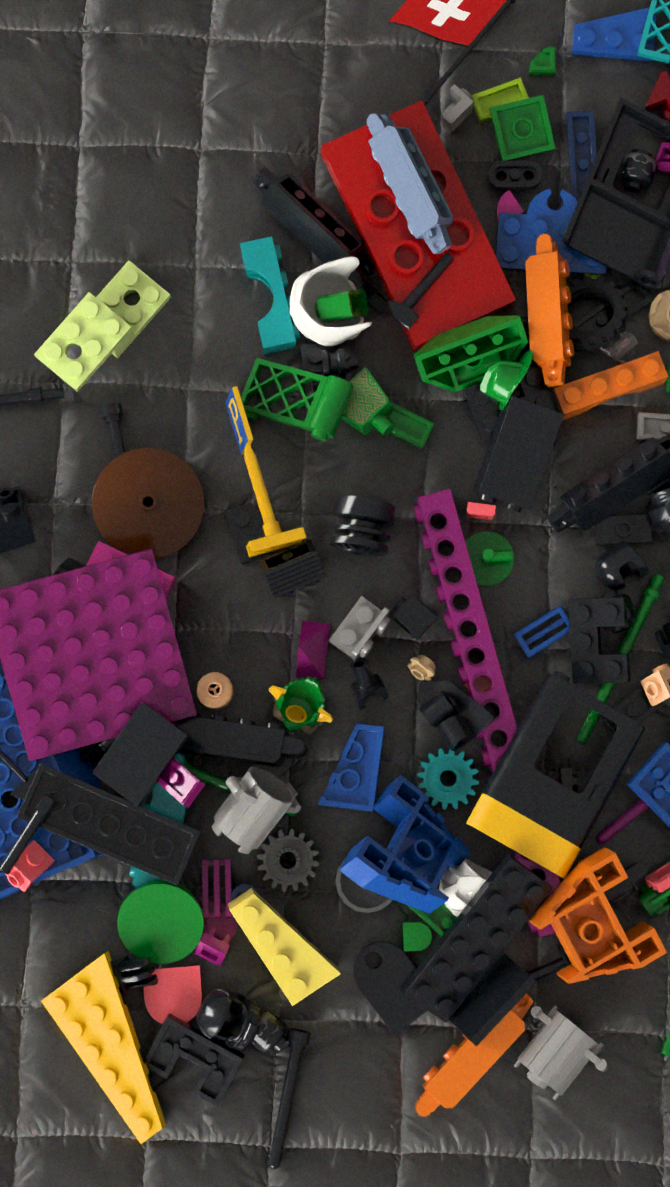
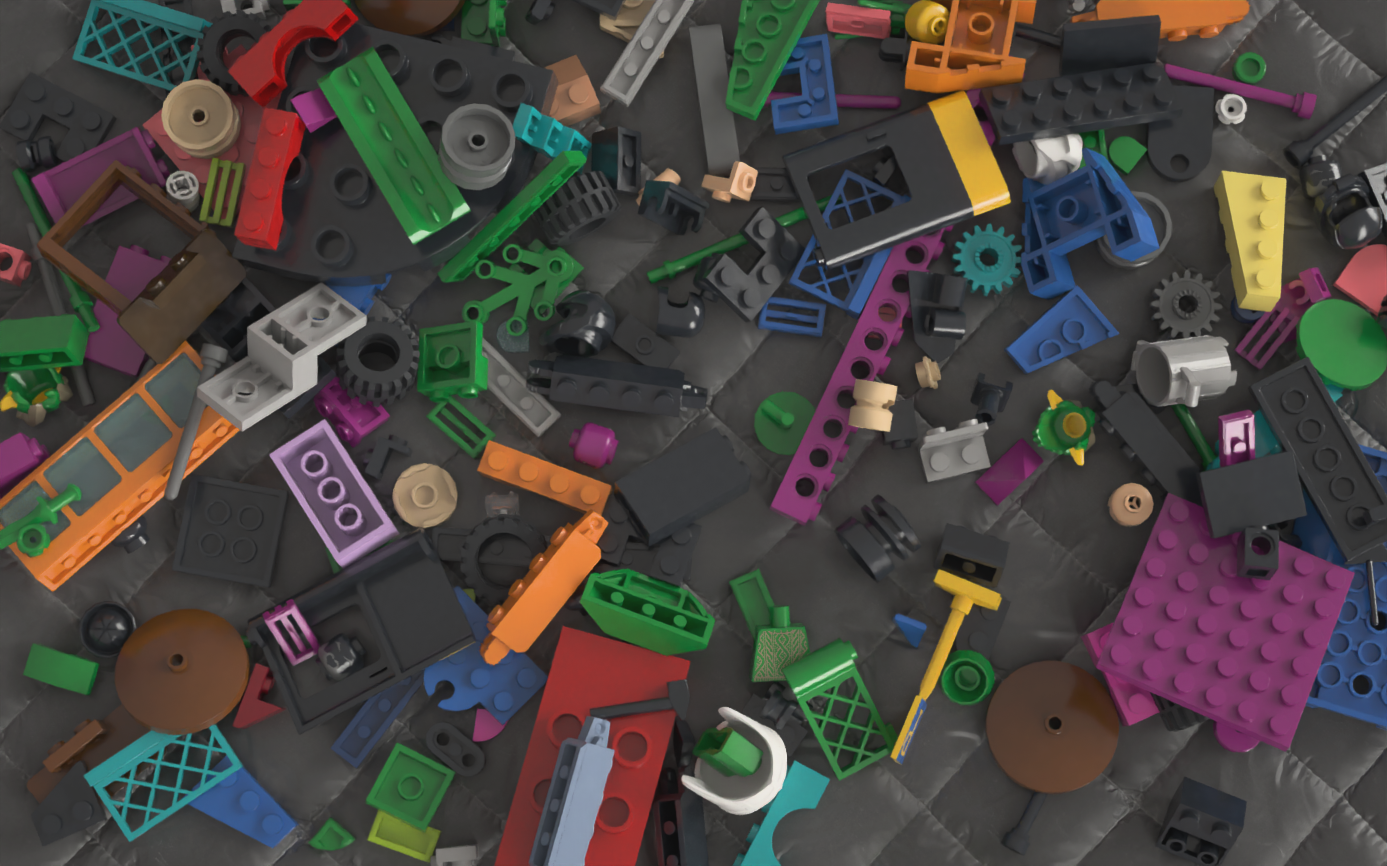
camera: 140 degrees left, 0 degrees up
(102, 702) = (1254, 565): none -> black brick
(229, 489) = (966, 677): none -> green hat
(293, 490) = (910, 628): none -> blue slope
(325, 1075) = (1302, 104): none -> magenta piece
(370, 1023) = (1236, 103): none -> white plate
(381, 1072) = (1249, 68): none -> green tile
(440, 606) = (872, 405): none -> tan wheel
(480, 511) = (758, 466): coral tile -> none
(504, 377) = (637, 557): green piece -> none
(519, 706) = (871, 265): none -> blue fence
(598, 436) = (593, 445): none -> magenta head
(629, 906) = (927, 22): none -> yellow head

